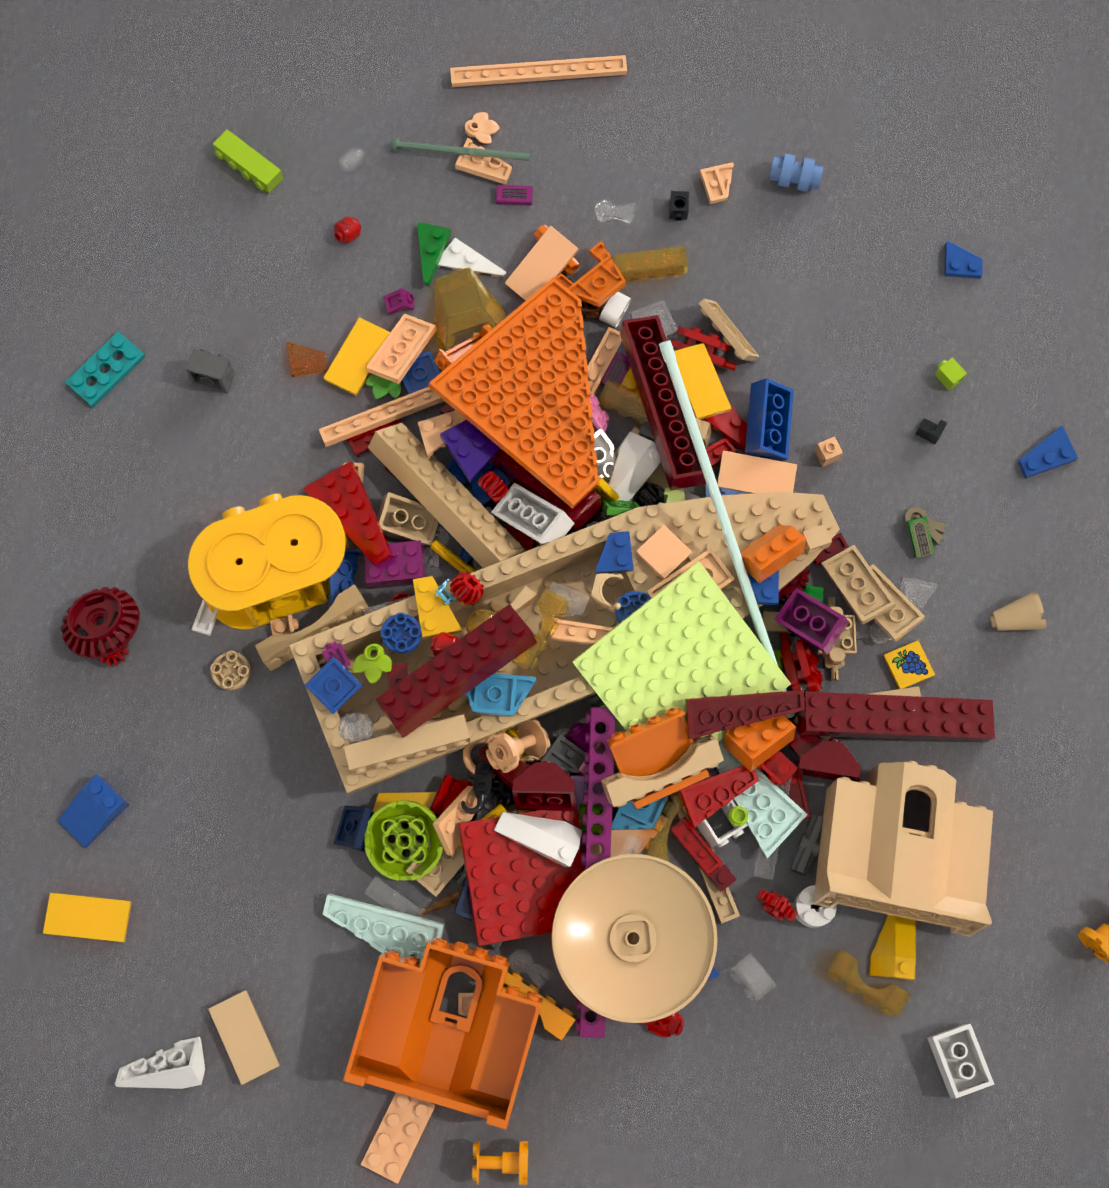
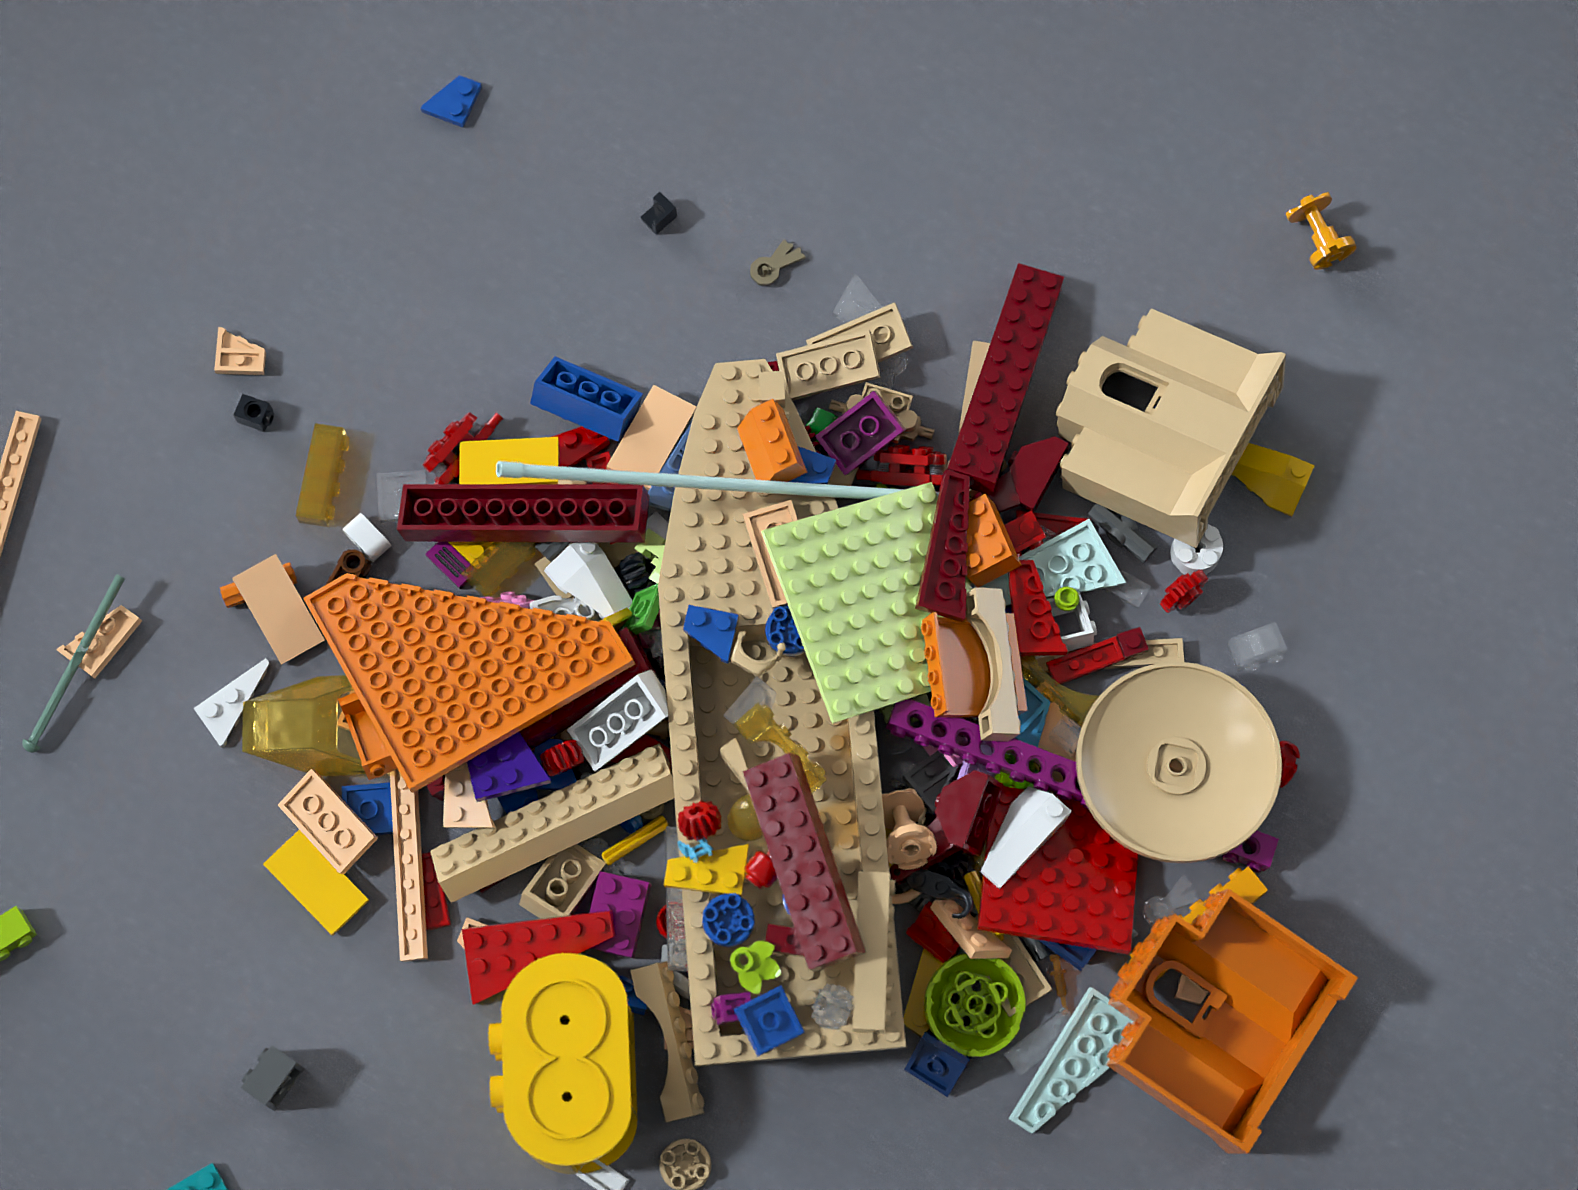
camera: 65 degrees left, 0 degrees up
(284, 625) = (650, 1080): light nougat bracket -> none
(305, 360) = (296, 952): clear orange wing -> none
(347, 230) = (132, 844): red head -> none
(352, 159) = (32, 809): clear brick -> none
(383, 386) = (369, 863): bright green plate -> none
(398, 301) = (257, 807): magenta bracket -> none
(398, 1136) = (1321, 1120): light nougat plate -> none
(432, 245) = (193, 740): green wing -> none
(482, 128) = (50, 624): light nougat plate -> none
(500, 694) = (846, 821): dark azure wing -> none
(509, 1163) = (1390, 994): light orange piece -> none
(514, 195) = (160, 615): magenta tile -> none
(577, 736) = (910, 754): magenta brick -> none
(579, 632) = (798, 700): light nougat tile -> none
(598, 283) = (329, 542): orange wing -> none
(603, 357) = (424, 569): light nougat plate -> none
(606, 211) = (227, 506): clear piece -> none
(664, 552) = (728, 572): light nougat tile -> none
(731, 334) = (439, 410): tan plate -> none
(803, 174) = (257, 263): medium blue piece -> none
(828, 451) = (647, 343): light nougat brick -> none
(845, 969) = (1278, 539): clear yellow arch -> none
(908, 665) = (942, 343): yellow tile -> none
(920, 537) = (790, 274): tile -> none
(950, 373) = (595, 166): lime brick -> none
(960, 1061) = (1418, 448): white brick -> none
(1020, 615) = (924, 194): tan cone -> none
(1049, 454) = (736, 91): blue wing -> none

